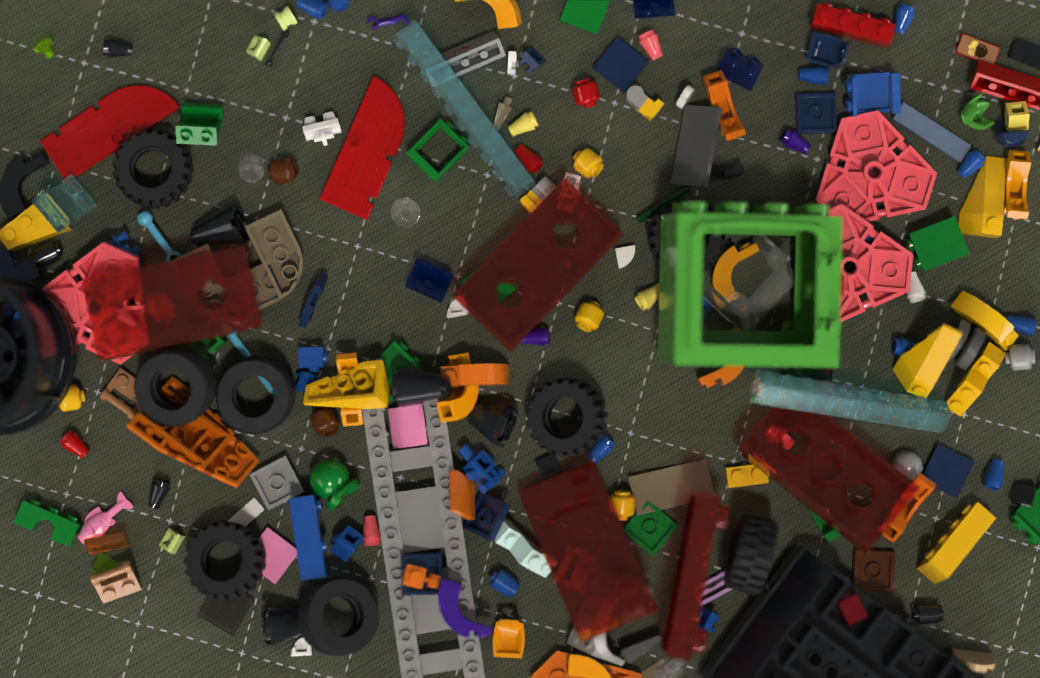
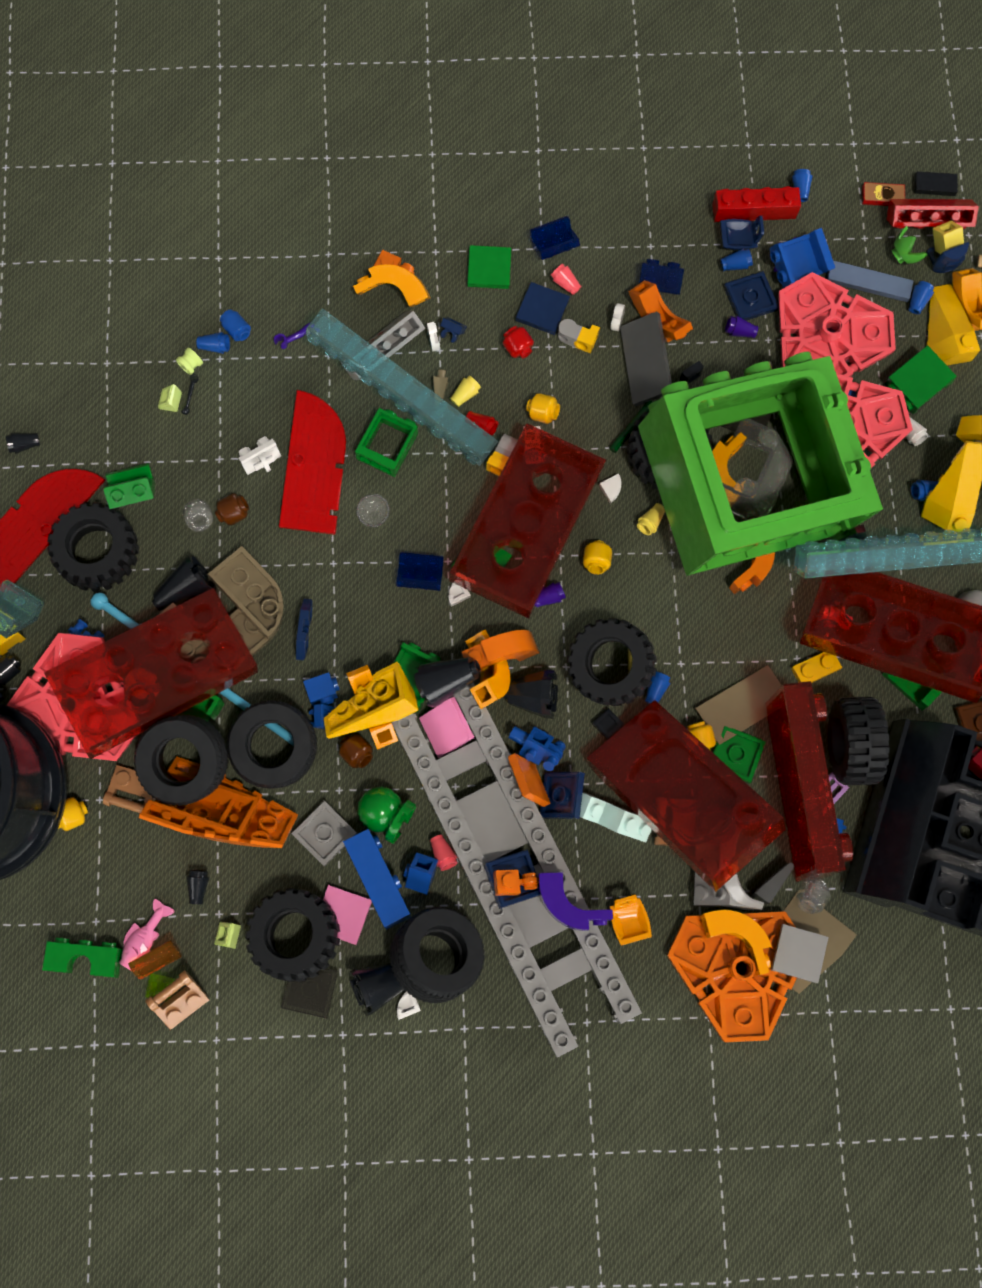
camera: 20 degrees left, 10 degrees down
(74, 444) = (88, 863): red cone -> none
(247, 513) = (303, 876): white sticker -> none
(504, 583) = (604, 862): blue brick -> none

